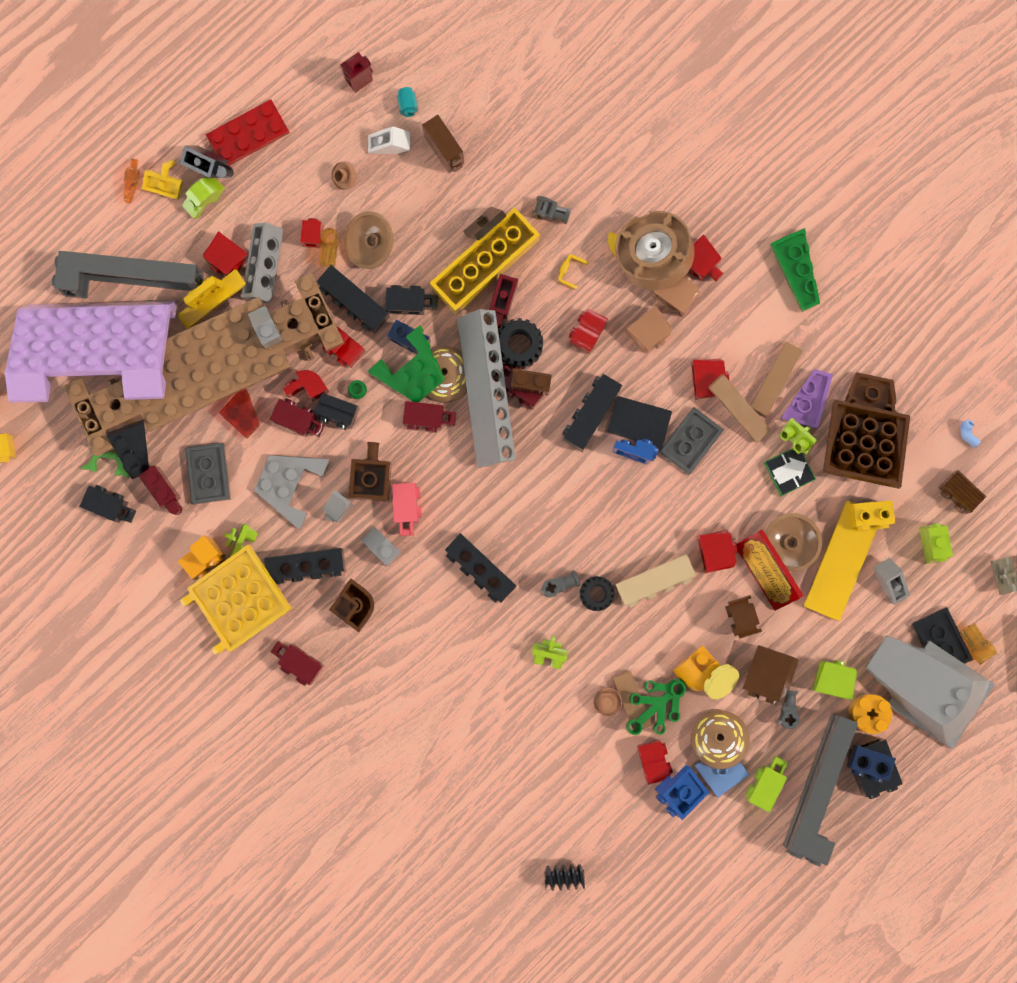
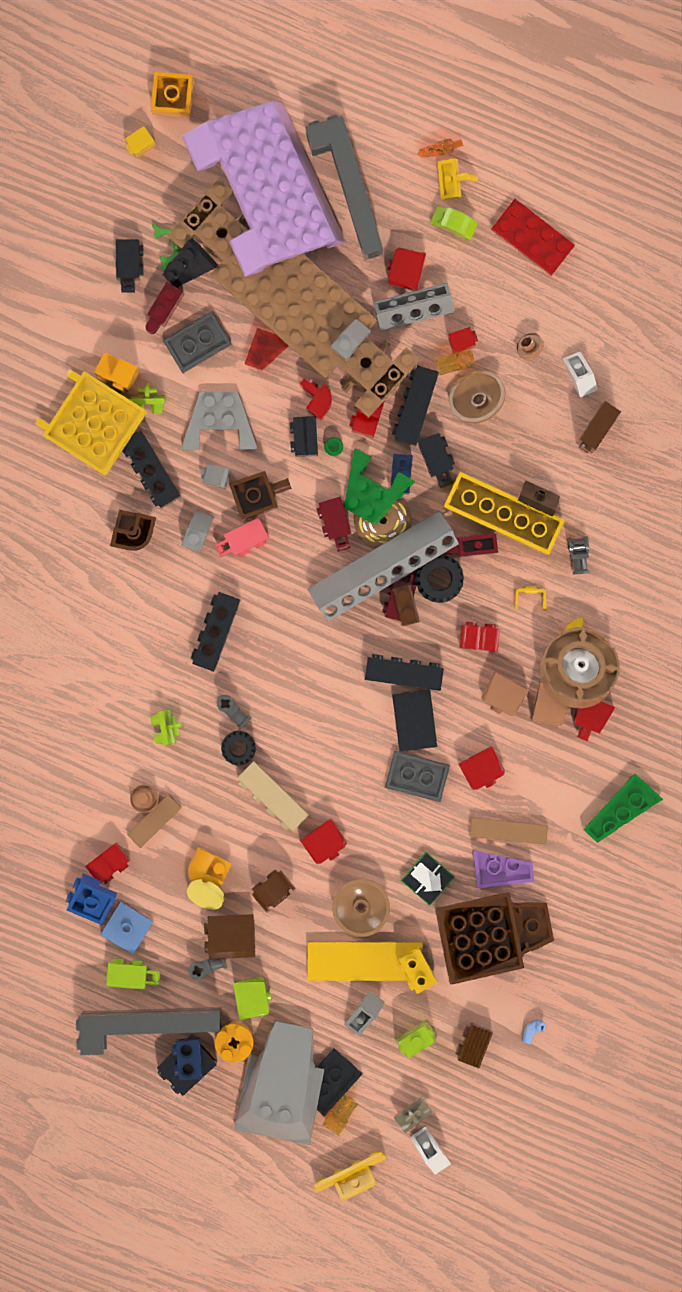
camera: 65 degrees right, 5 degrees up
(205, 162) = (486, 212): black brick -> none
(209, 296) = (361, 272): yellow bracket -> none
(295, 418) = (282, 401): dark red brick -> none
(298, 663) = (59, 501): dark red brick -> none
(357, 71) = (634, 316): dark red brick -> none
(407, 102) = (626, 375): teal brick -> none
(642, 451) = (386, 733): blue plate -> none
(658, 705) = (161, 845): green plant -> none
(720, 753) = (143, 925): medium nougat dish -> none
(739, 408) = (464, 808): medium nougat tile -> none
(769, 570) = (325, 896): tile -> none
(799, 436) = (463, 873): lime hips -> none

